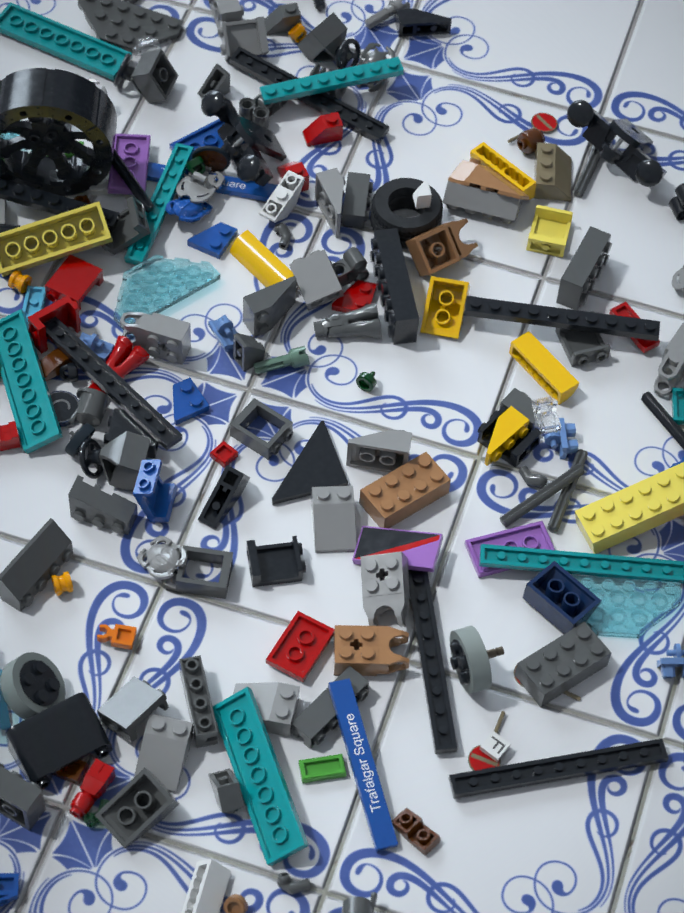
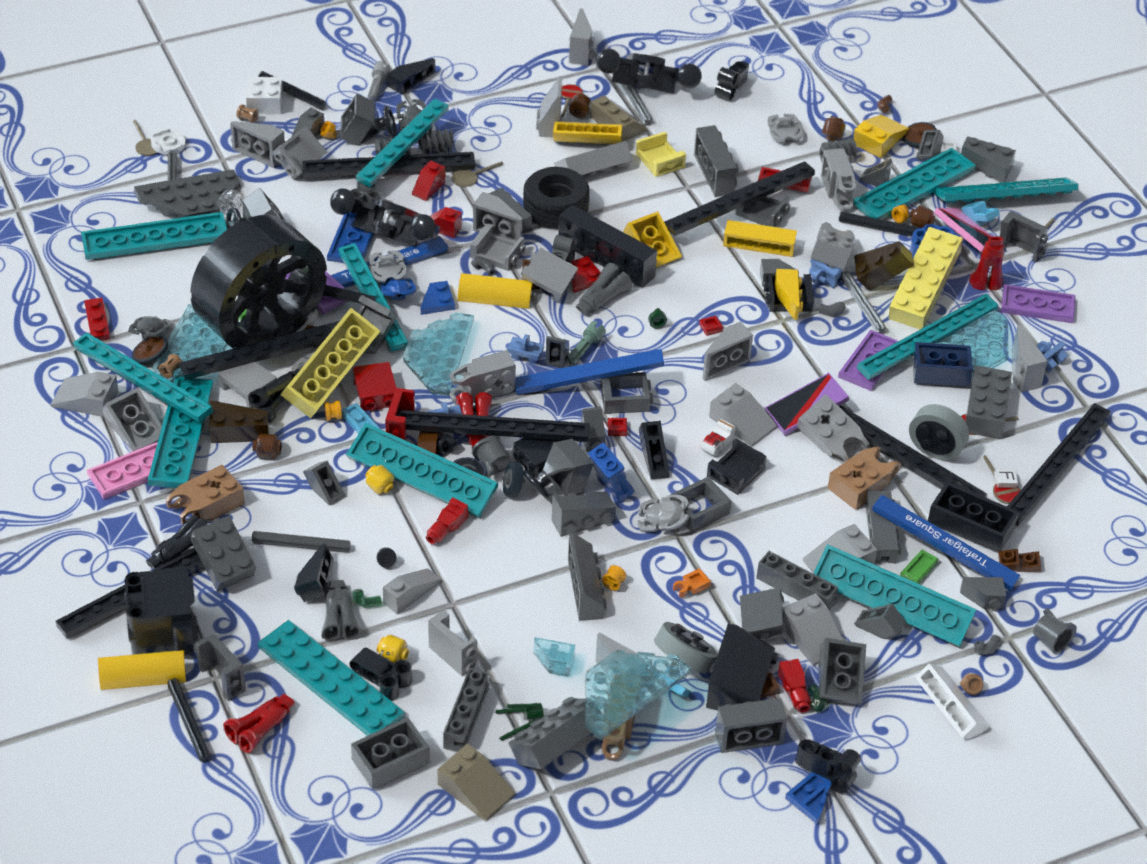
camera: 40 degrees left, 10 degrees down
(32, 889) = (829, 763): none -> black piece
(187, 401) = (549, 408): blue wing -> none
(193, 443) = (597, 431): none -> dark grey slope
(194, 163) = (370, 252): dark green tile -> none
(213, 157) = (376, 242): reddish brown wheel -> none
(217, 80) = (313, 196): dark grey slope -> none
(247, 389) = (589, 371): none -> blue tile
(267, 306) = (536, 314): dark grey slope -> none
(283, 198) = (459, 237): white slope -> none
(289, 525) = (719, 438): none -> white leg
(300, 646) = (817, 505): red plate -> none
(309, 226) = (496, 249): none -> light grey panel
(314, 467) = (688, 395): black tile -> none
(348, 835) = (984, 591): none -> dark grey slope
(365, 146) = (467, 178): none -> dark tan piece
(370, 99) = (436, 141): none -> dark grey piece
(404, 491) = (767, 366): medium nougat brick -> none
(408, 419) = (711, 325): none -> red tile
(415, 759) = (973, 516): none -> black brick
(422, 196) = (565, 173): white slope -> none
(439, 247) = (607, 202): medium nougat brick -> none
(483, 177) = (577, 144): medium nougat wedge -> none
(496, 130) = (550, 110): none -> light grey slope
(542, 495) = (854, 312): dark grey axle -> none
(546, 414) = (801, 260): clear slope -> none
(593, 418) = (832, 246): none -> light grey brick
(598, 78) = (581, 41): none -> light grey slope
(611, 467) = (882, 264): none -> dark brown wedge
(634, 656) = (1027, 362): none -> light grey slope

